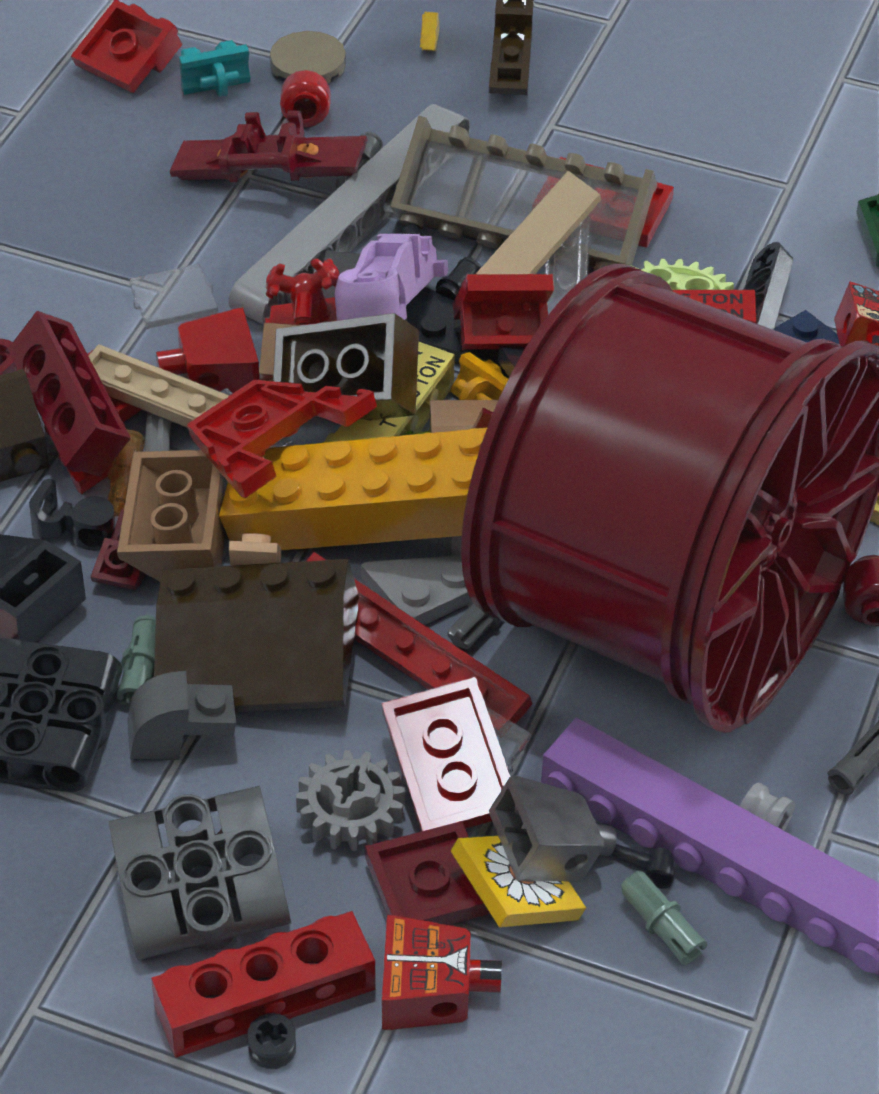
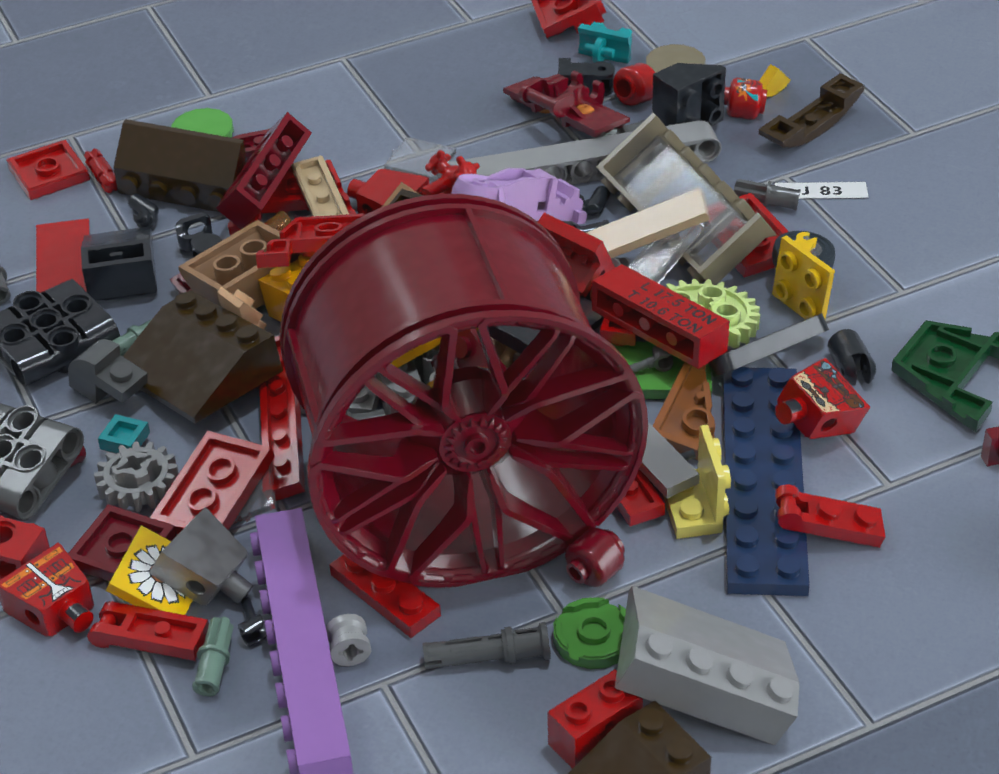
camera: 45 degrees right, 5 degrees down
(223, 120) = (599, 71): none -> black leg
(273, 768) = (124, 432): none -> teal plate
(392, 86) = (689, 93): none -> black slope
(428, 61) = (745, 98): none -> red head
(569, 939) = (148, 630): none -> red plate
(587, 146) = (769, 193): none -> dark grey axle
(600, 123) = (829, 189): none -> white sticker
(718, 215) = (803, 272): none -> yellow plate
(745, 750) = (395, 600): none -> red plate
(835, 270) = (851, 356): none -> black piece

